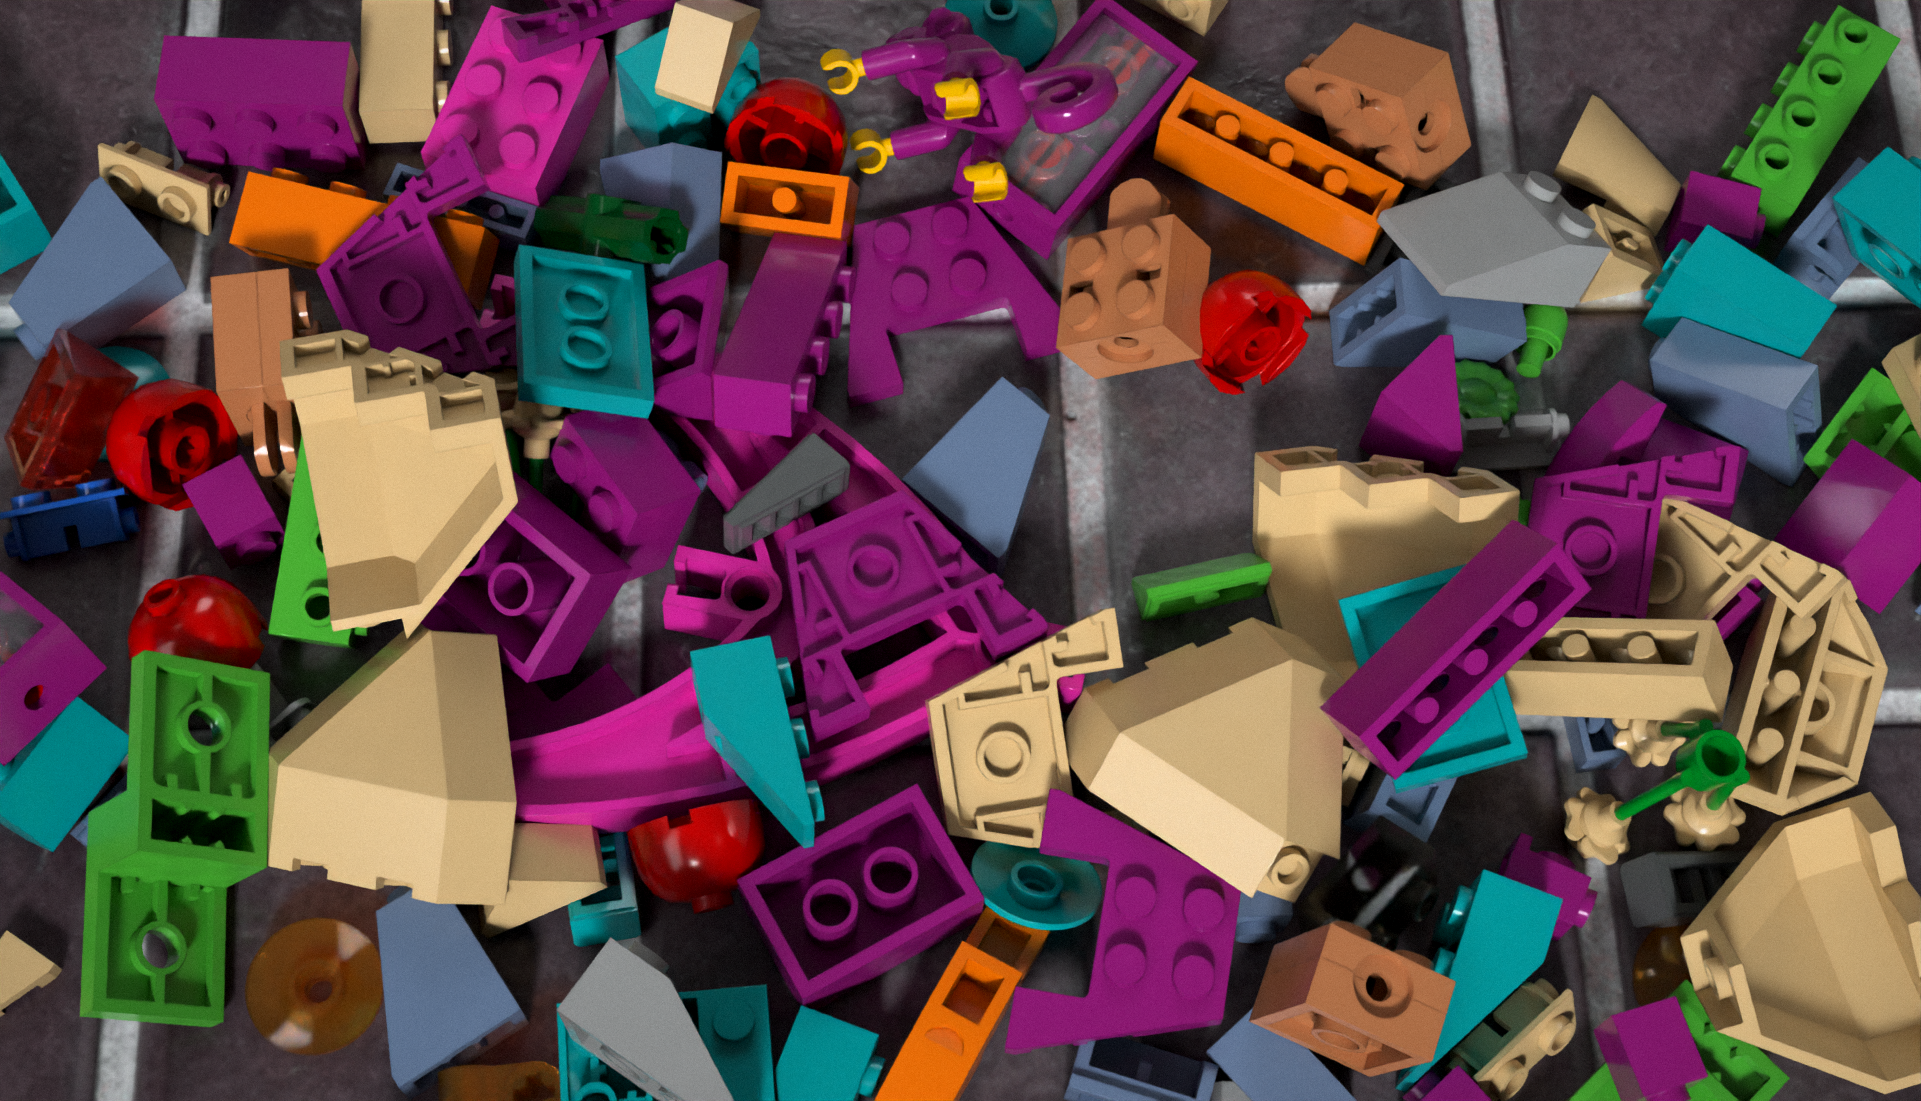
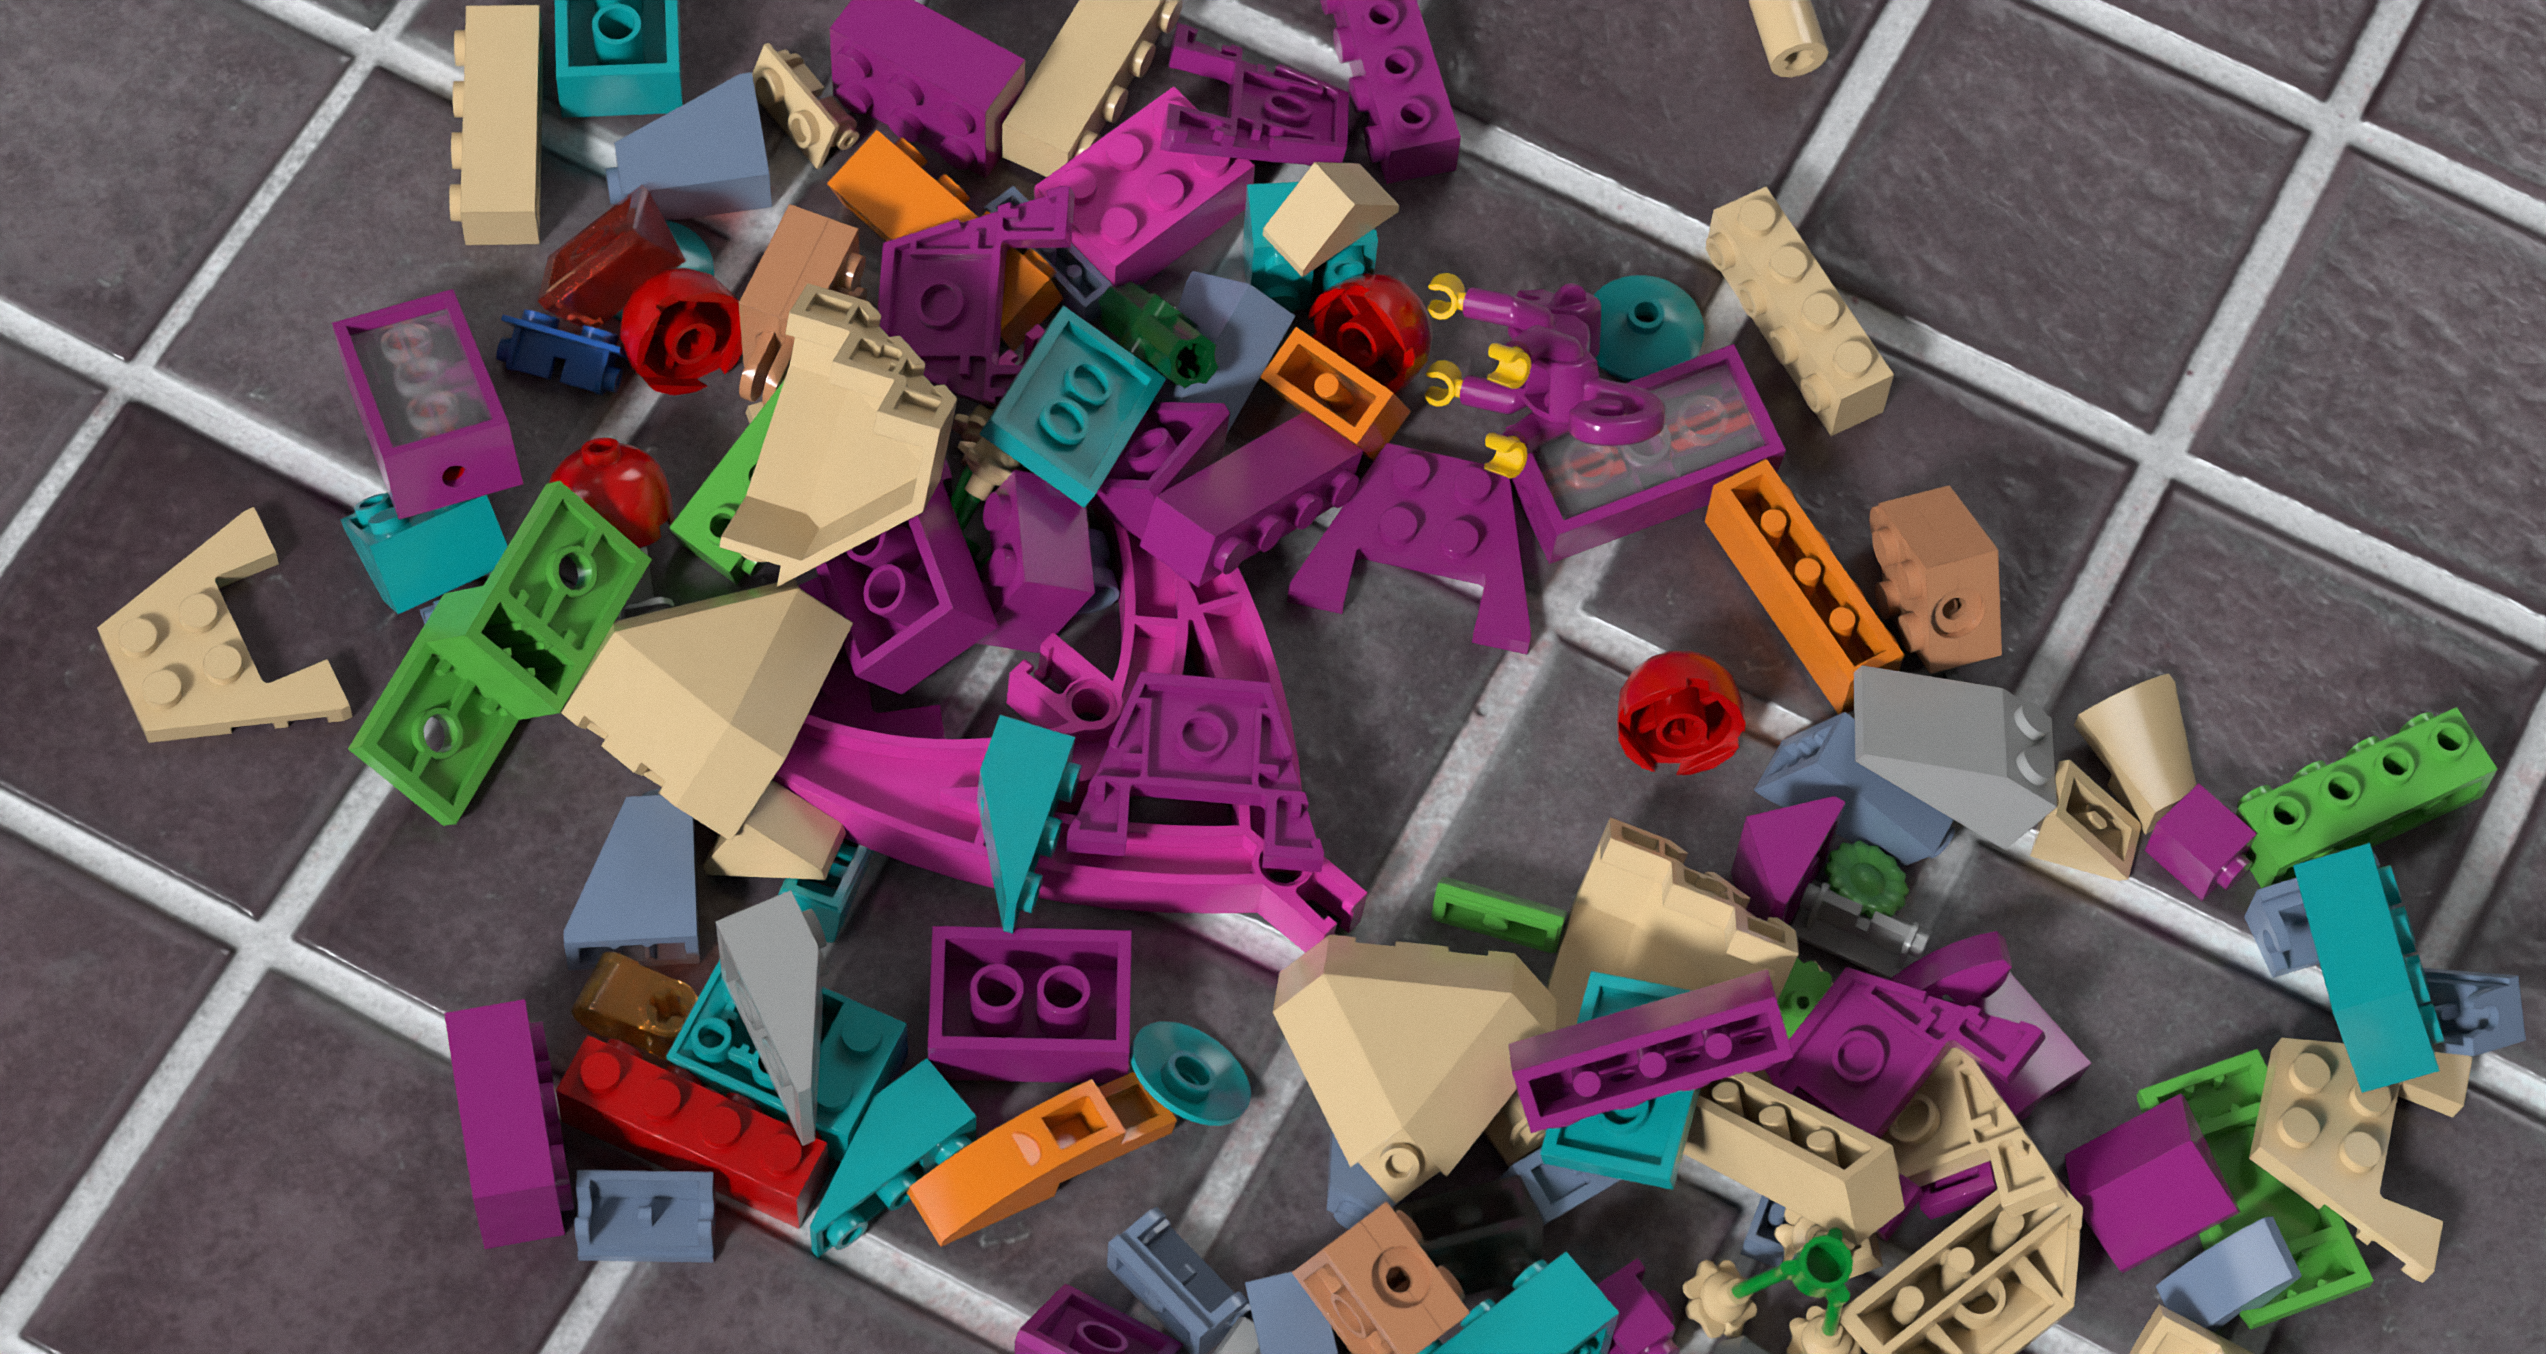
camera: 30 degrees right, 5 degrees down
(235, 513) = (701, 416): magenta brick -> none
(295, 961) = (539, 809): clear orange dish -> none
(700, 853) = (918, 891): red cylinder -> none
(793, 488) = (1168, 634): dark grey slope -> none
(984, 472) = (1365, 716): sand blue slope -> none
(1004, 739) = (1226, 953): tan wing -> none
(1133, 288) = (1595, 620): nougat brick -> none
(1158, 944) = (1254, 1172): magenta wing -> none
(1545, 336) = (1962, 863): bright green cylinder -> none
(1735, 293) = (2150, 931): teal brick -> none
(1741, 395) = (2110, 1008): sand blue slope -> none

